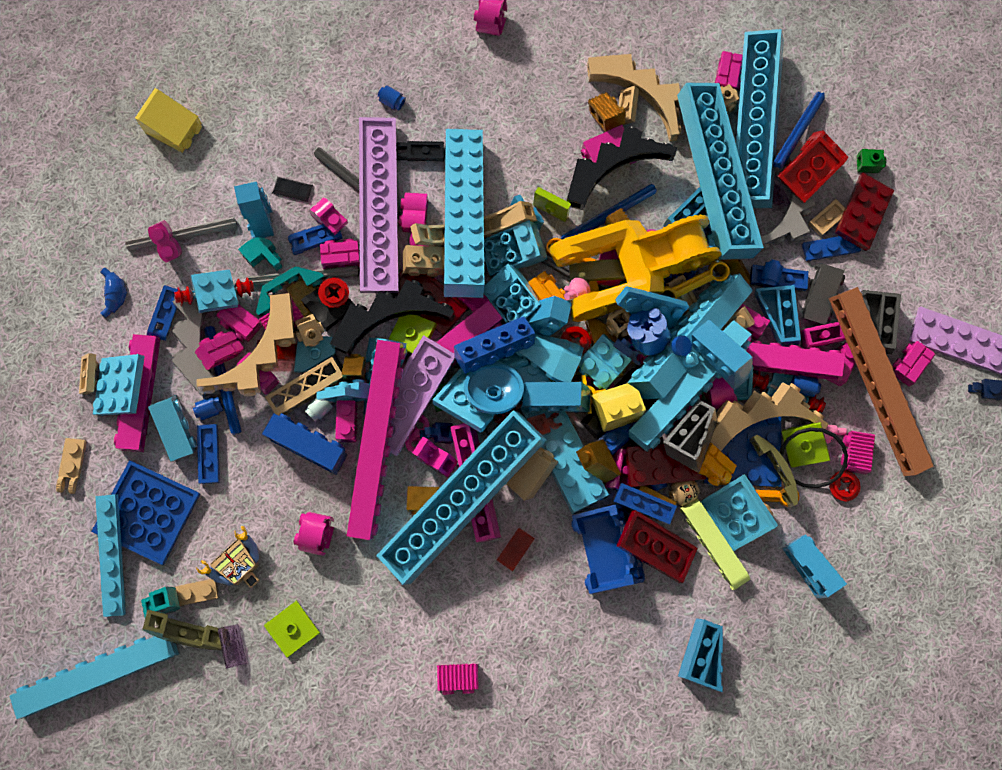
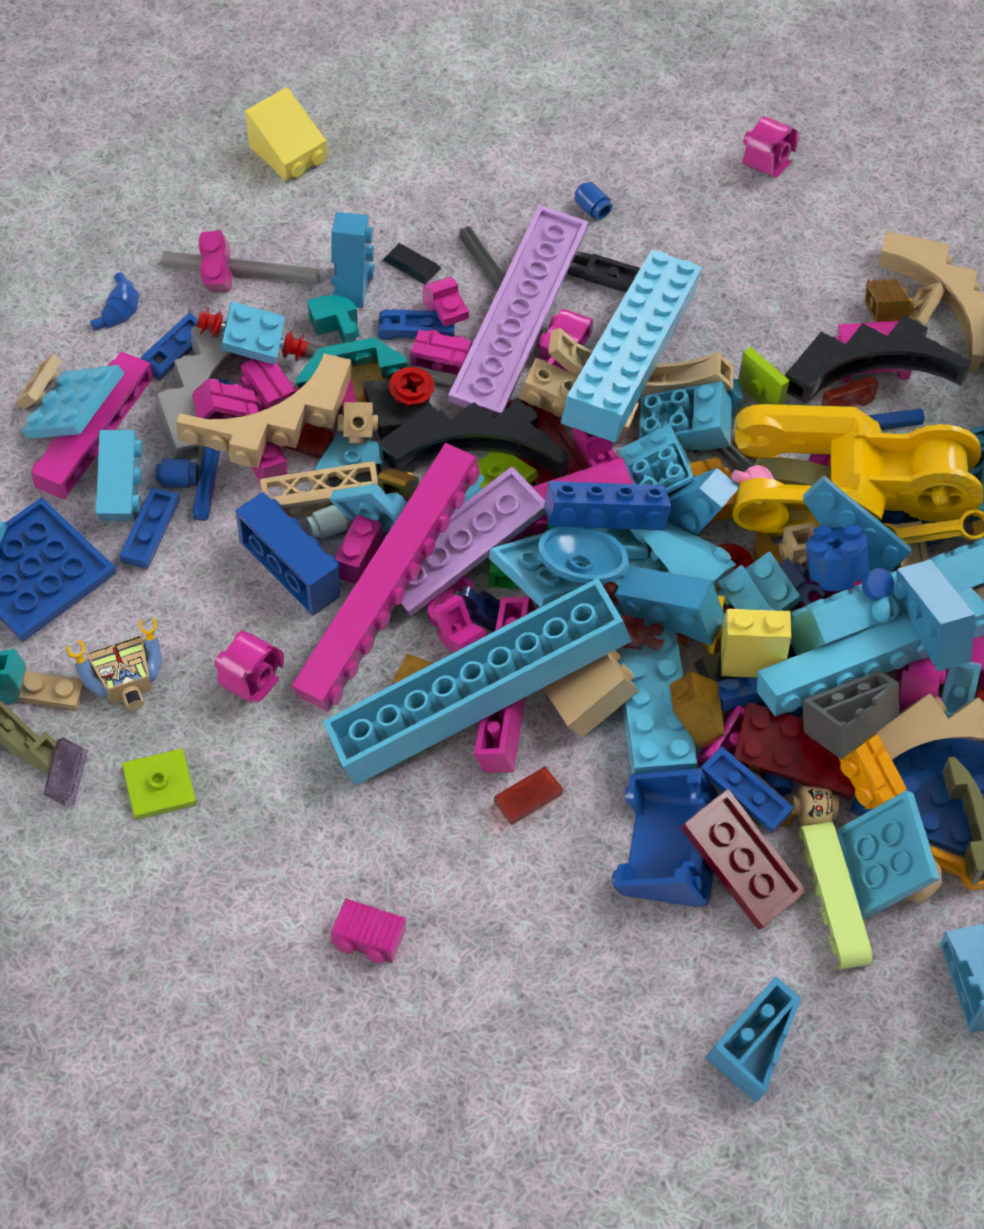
camera: 25 degrees right, 20 degrees down
(601, 196) = (852, 394): none -> clear red plate

